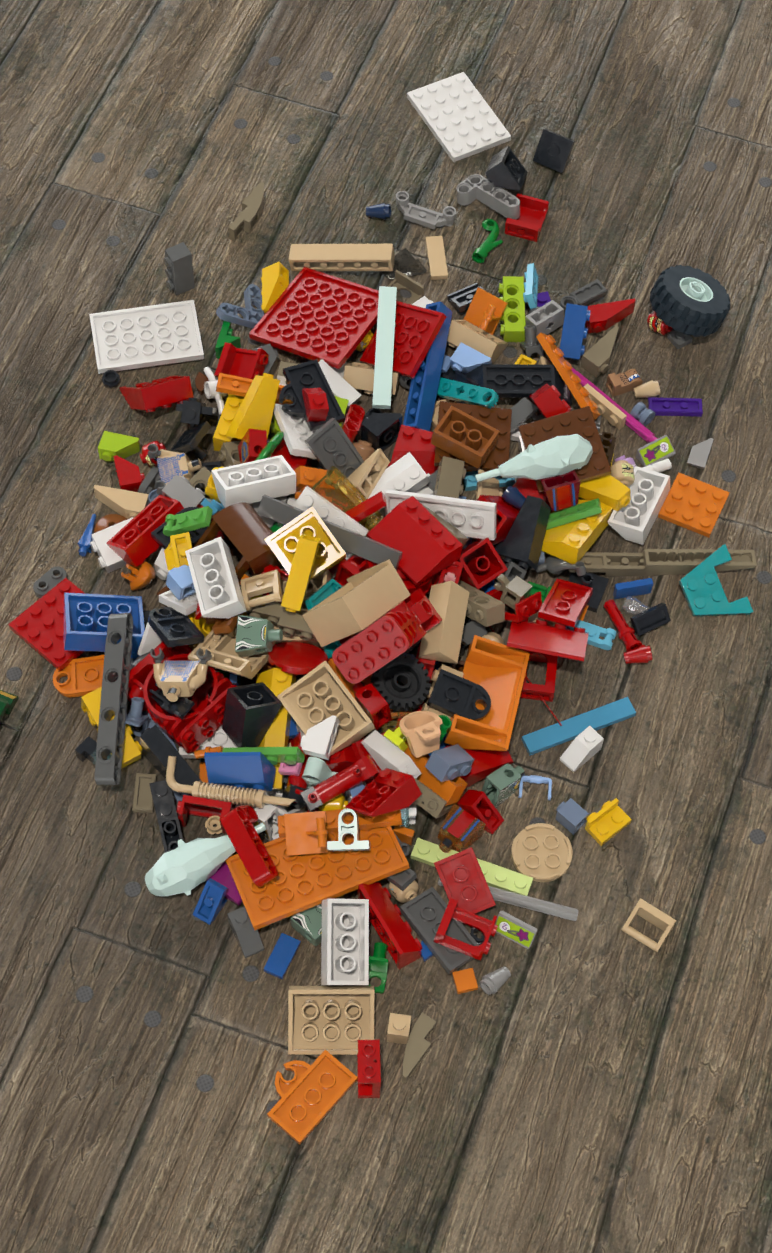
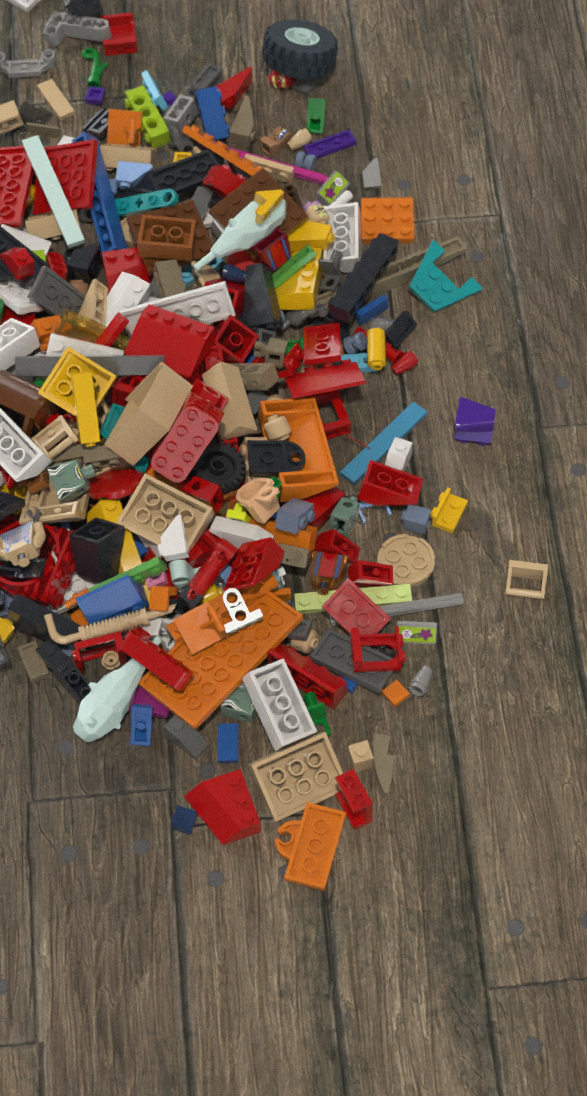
camera: 20 degrees left, 0 degrees up
(203, 1012) = (184, 820): none -> dark blue slope
(248, 1018) = (226, 807): none -> red wedge
(282, 786) = (160, 597): none -> orange panel
(474, 268) = (95, 95): none -> dark purple plate
(477, 668) = (277, 428): none -> tan head
(498, 851) = (370, 574): none -> red slope
(560, 772) = (388, 486): none -> red slope
(573, 442) = (267, 203): none -> yellow slope
(600, 615) = (355, 343): none -> sand blue wheel
(610, 530) = (331, 270): none -> dark grey bracket
(615, 629) = (376, 348): none -> yellow brick
(637, 553) = (363, 277): none -> black brick
(675, 372) = (316, 115): none -> green slope
(675, 744) = (474, 422): none -> dark purple piece

